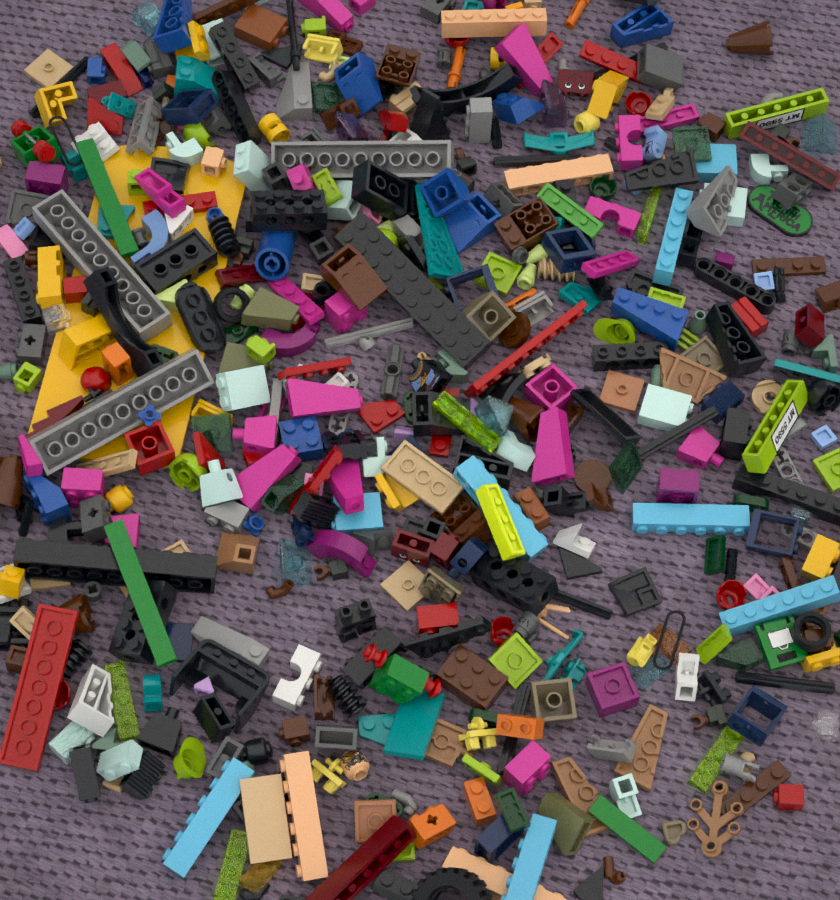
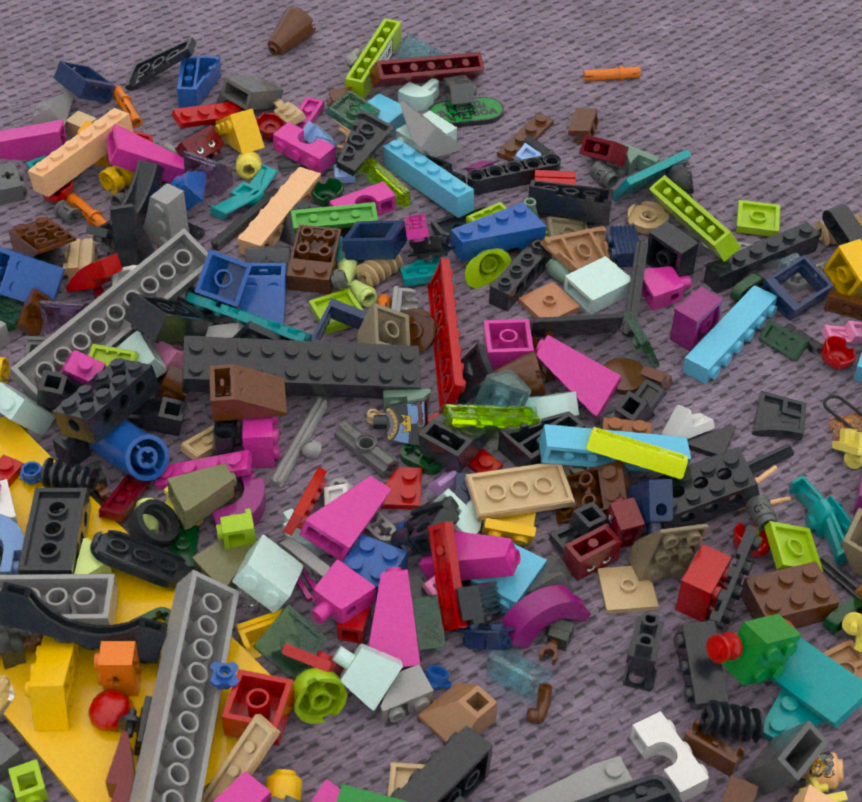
camera: 50 degrees left, 15 degrees down
(539, 363) = (474, 328): tan plate -> none
(823, 437) = (718, 208): light blue plate -> none

